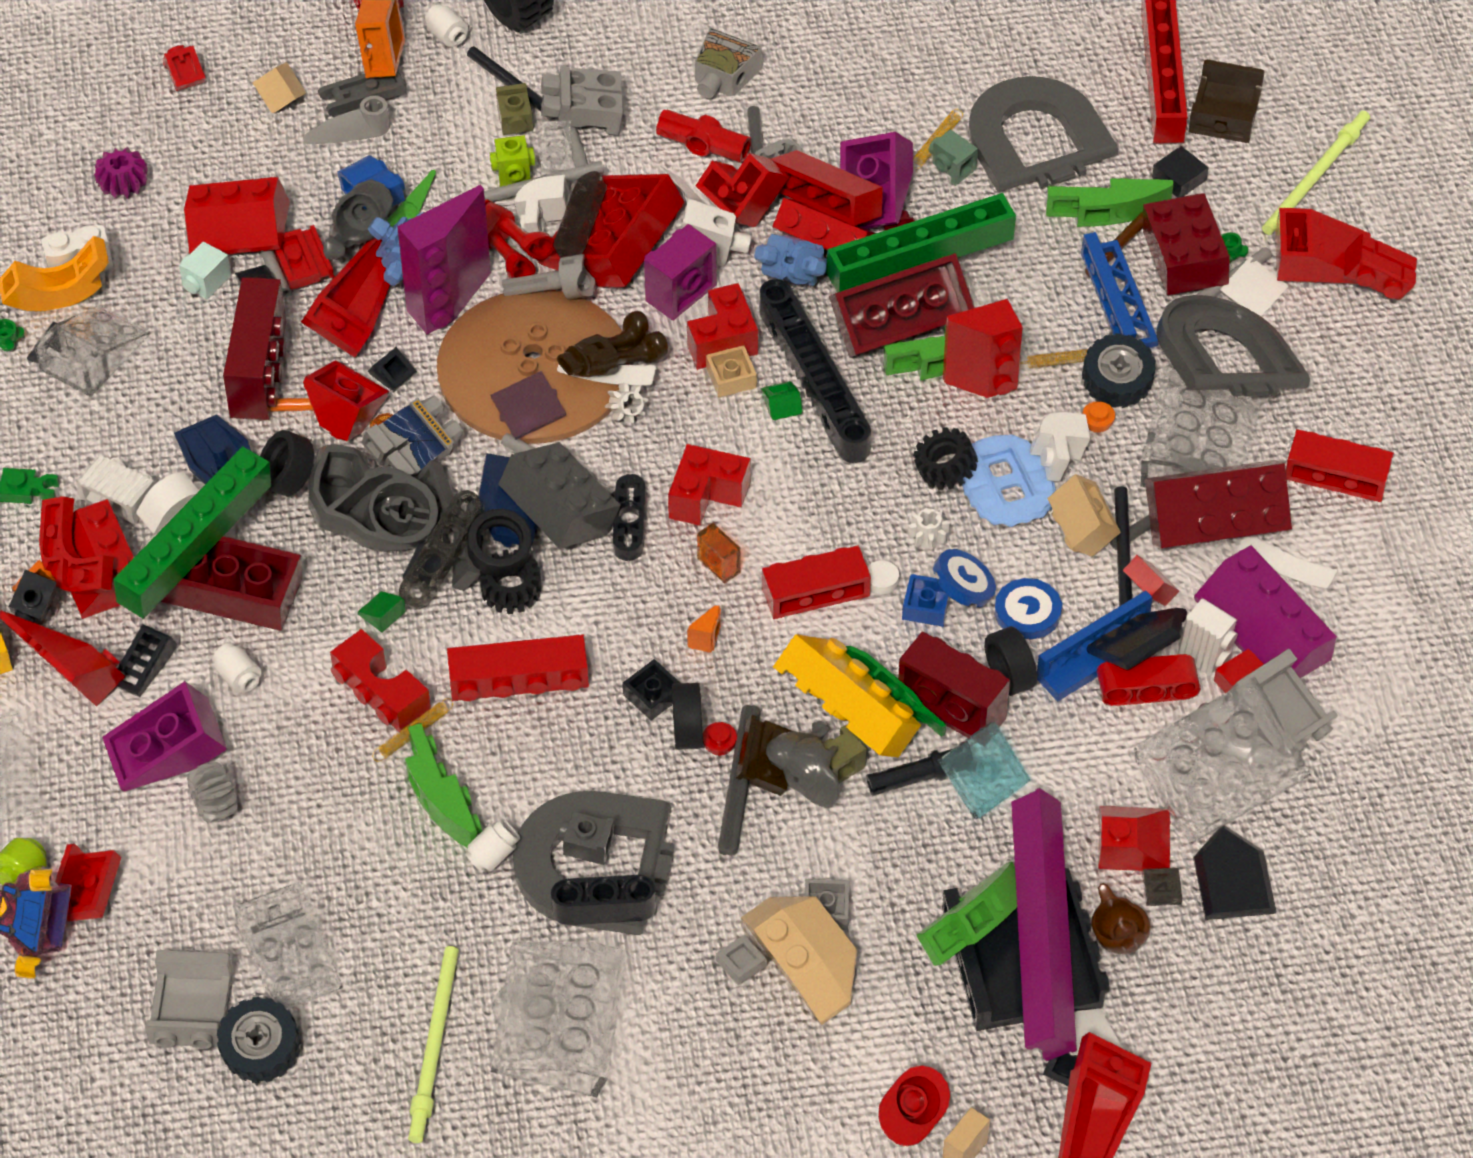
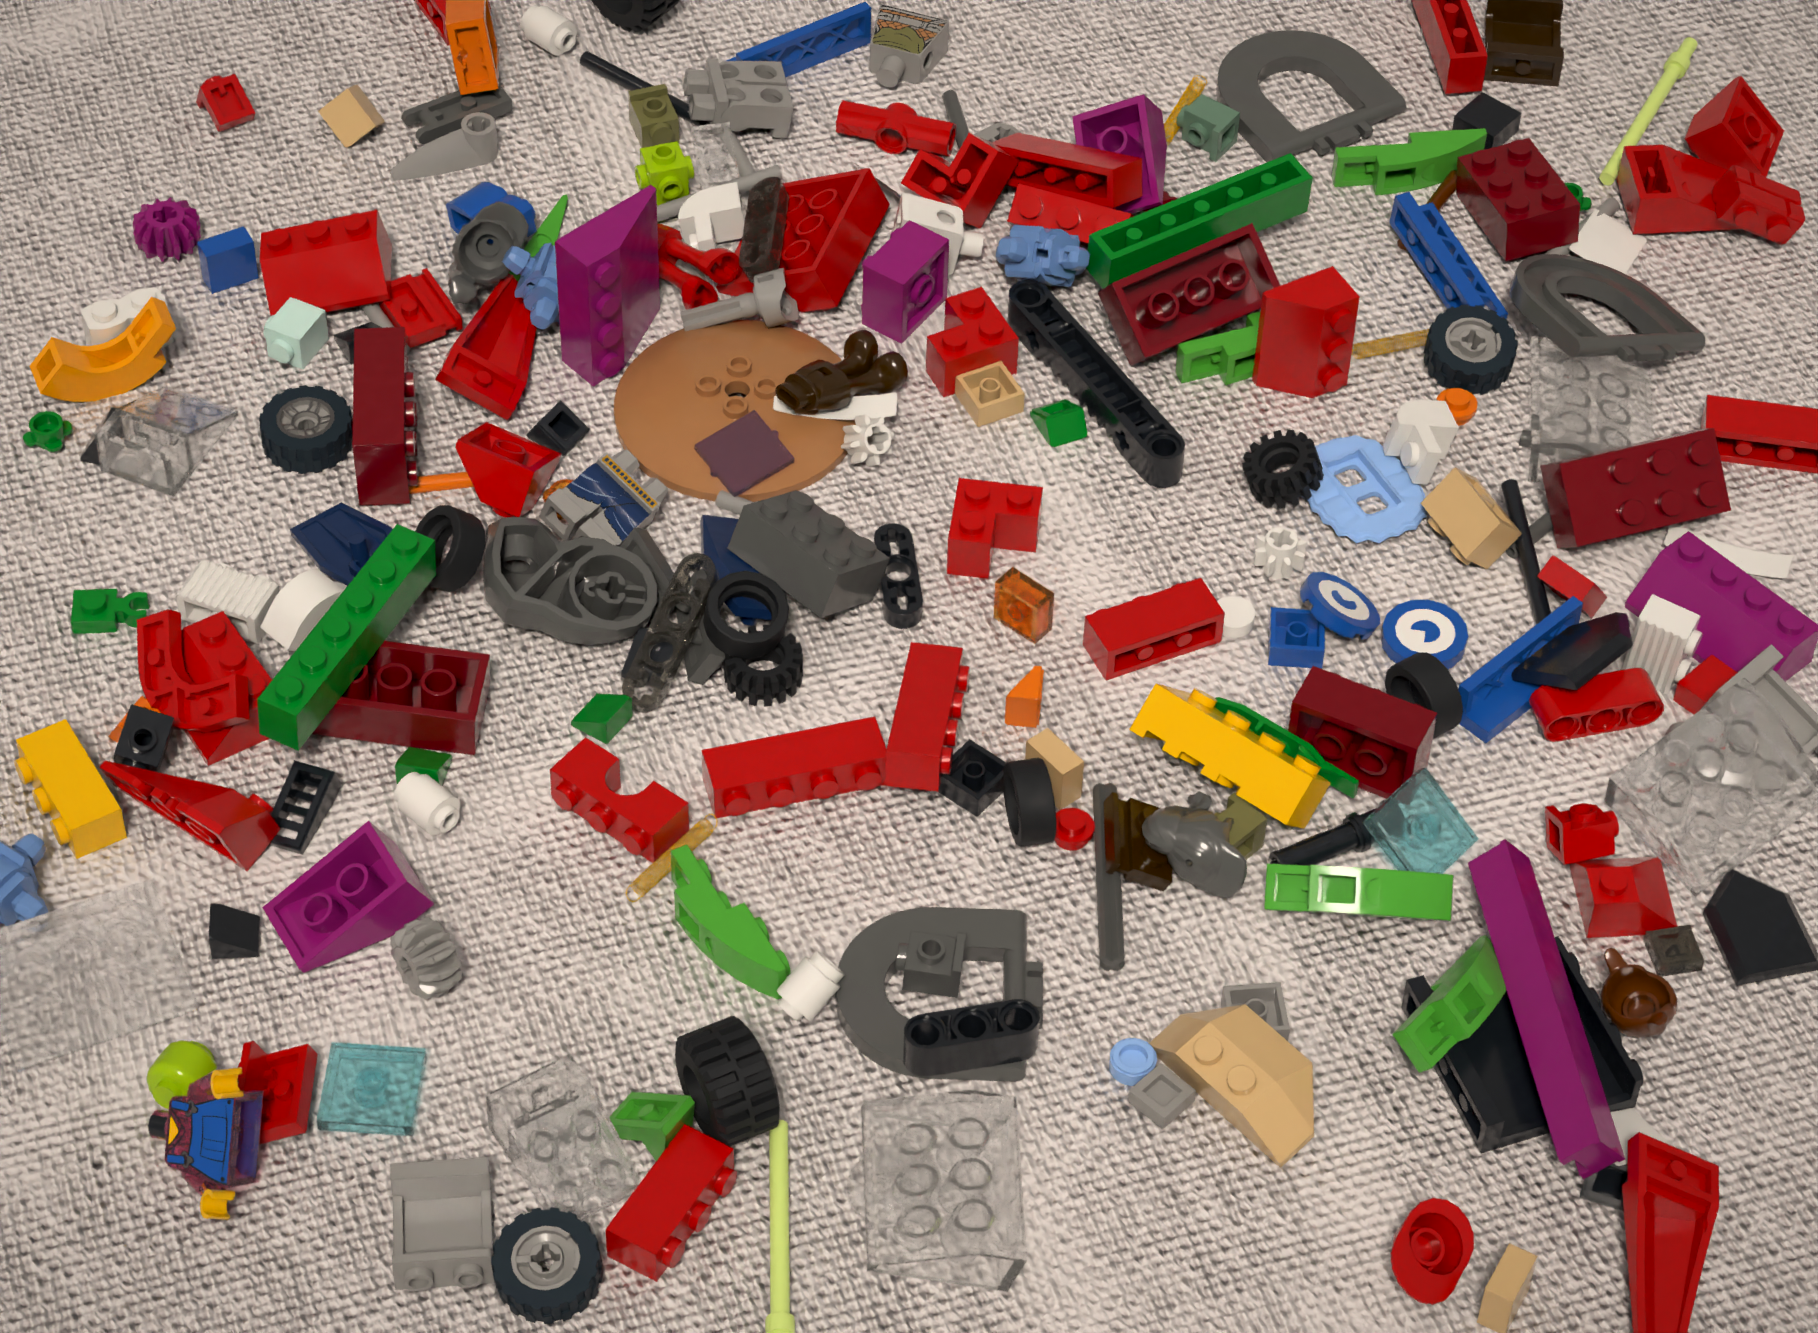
camera: 10 degrees left, 5 degrees down
(76, 755) = (233, 933): none -> black slope
(158, 888) = (372, 1089): none -> clear light blue plate
(162, 203) = (227, 260): none -> blue piece
(197, 351) = (306, 429): none -> black wheel
(240, 635) = (424, 762): none -> green slope
(359, 938) = (653, 1118): none -> bright green slope
(359, 1002) = (671, 1203): none -> red brick
(413, 915) = (727, 1081): none -> black tyre
(622, 638) = (925, 717): none -> red brick
(651, 55) = (815, 41): none -> blue fence
(715, 689) = (1062, 764): none -> tan piece
(726, 928) = (1131, 1060): none -> light blue tile
(926, 815) = (1359, 891): none -> bright green slope
(1109, 784) = (1580, 832): none -> red brick
(1381, 200) = (1735, 130): none -> red slope

